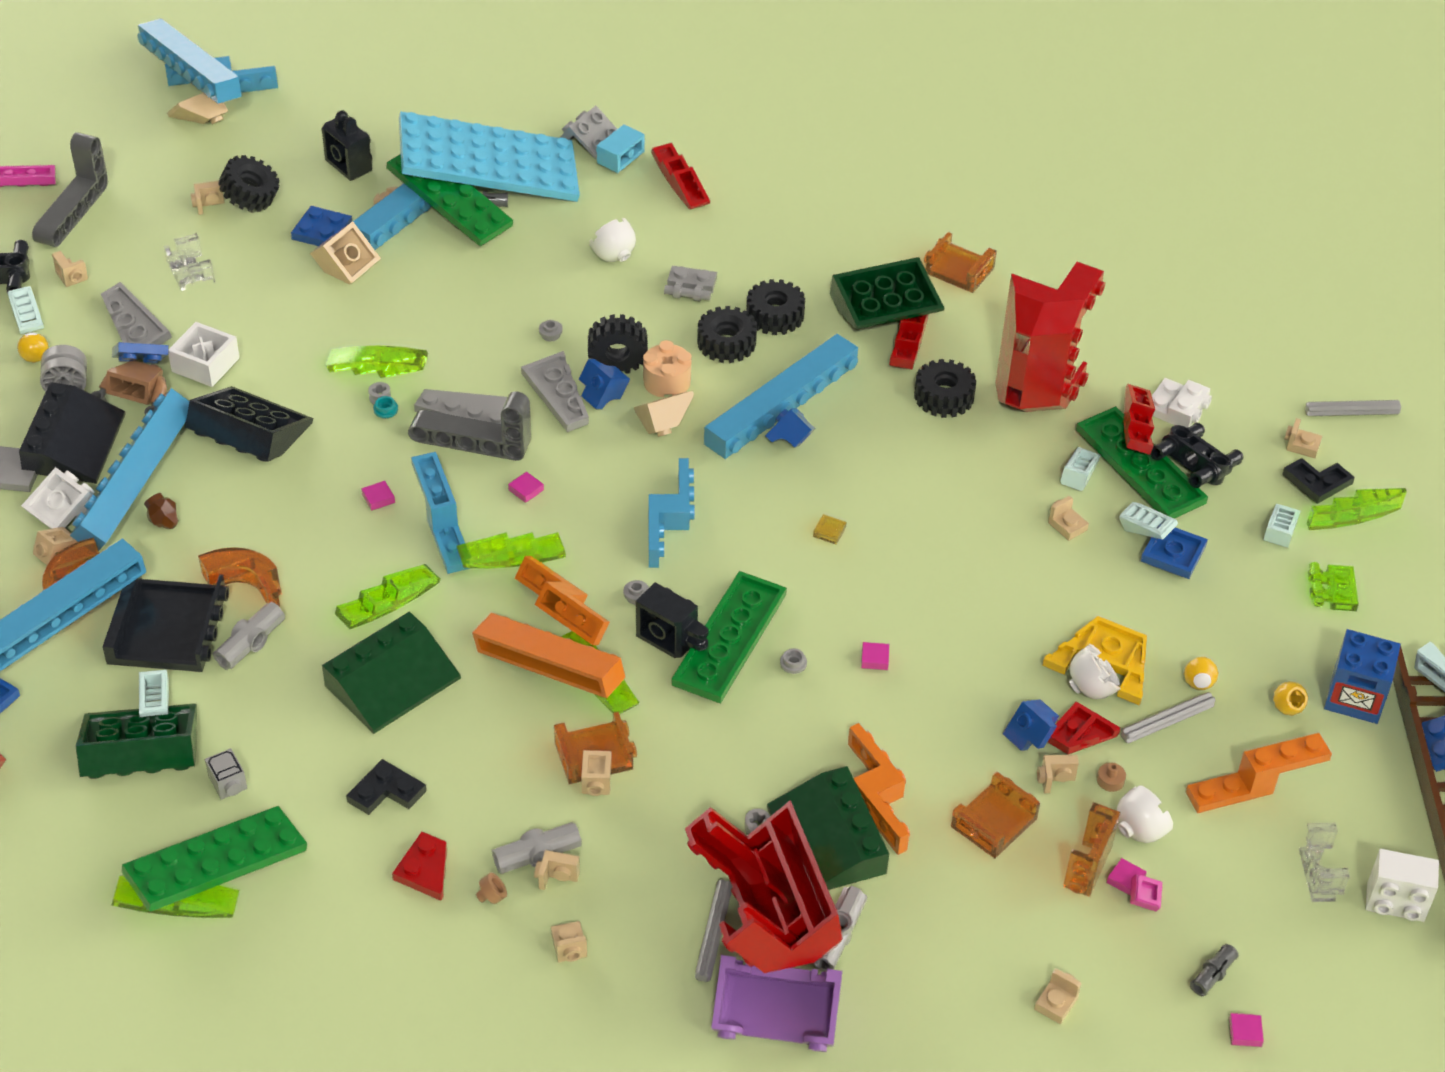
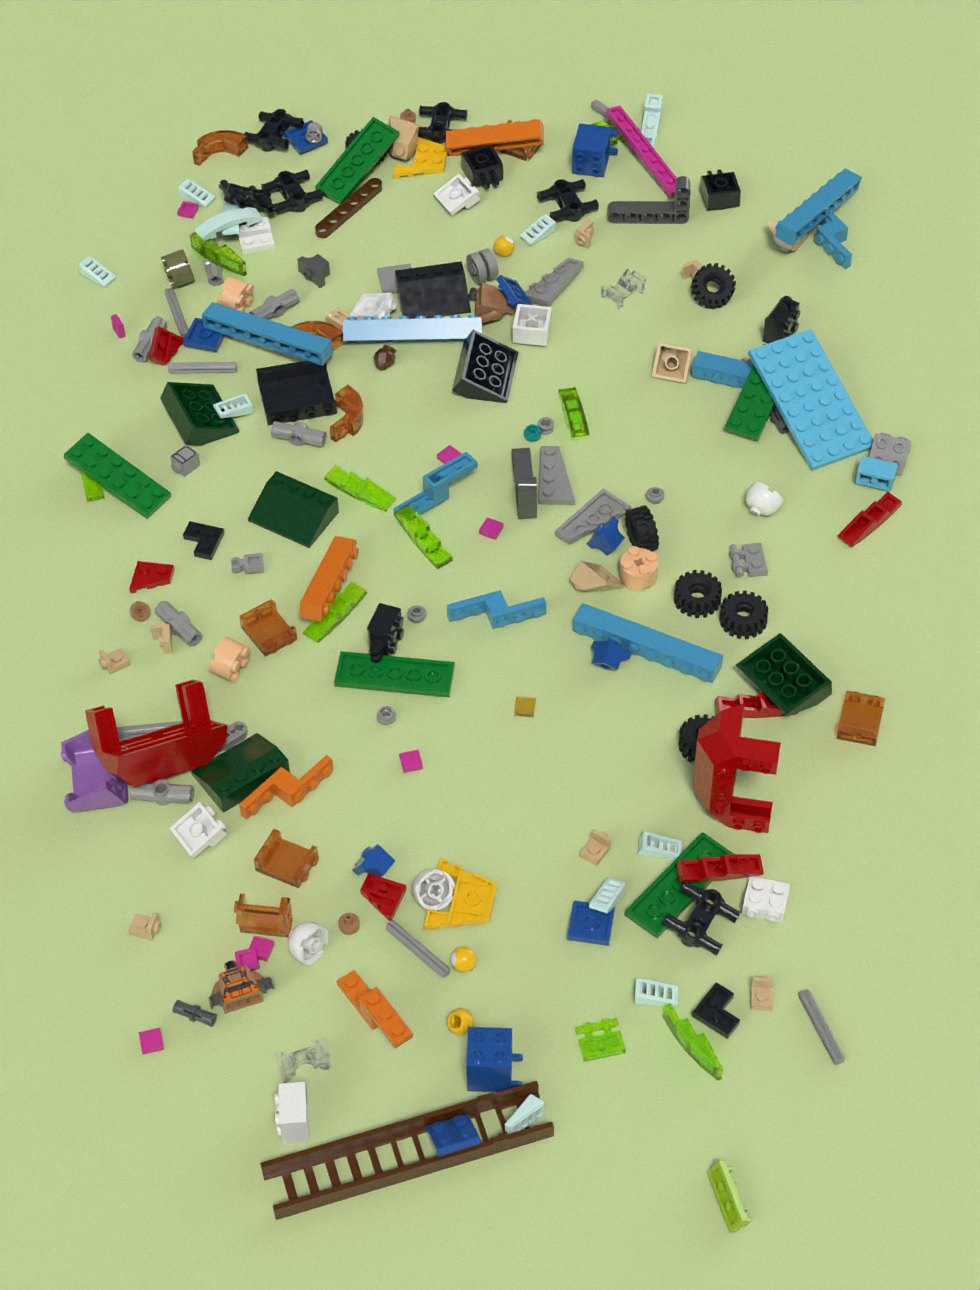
camera: 75 degrees right, 5 degrees up
(42, 718) = (203, 367): none -> light grey axle
(85, 122) = (720, 190): none -> black hinge
(319, 225) = (701, 339): blue plate -> none
(463, 741) = (251, 563): none -> light grey plate
(562, 600) = (383, 573): orange bracket -> none
(596, 772) = (246, 632): tan bracket -> none
(639, 796) = (229, 659): none -> light nougat brick
(919, 898) = (199, 829): none -> white plate
(1057, 768) = (336, 882): tan bracket -> none
(1191, 907) = (238, 988): none -> torso

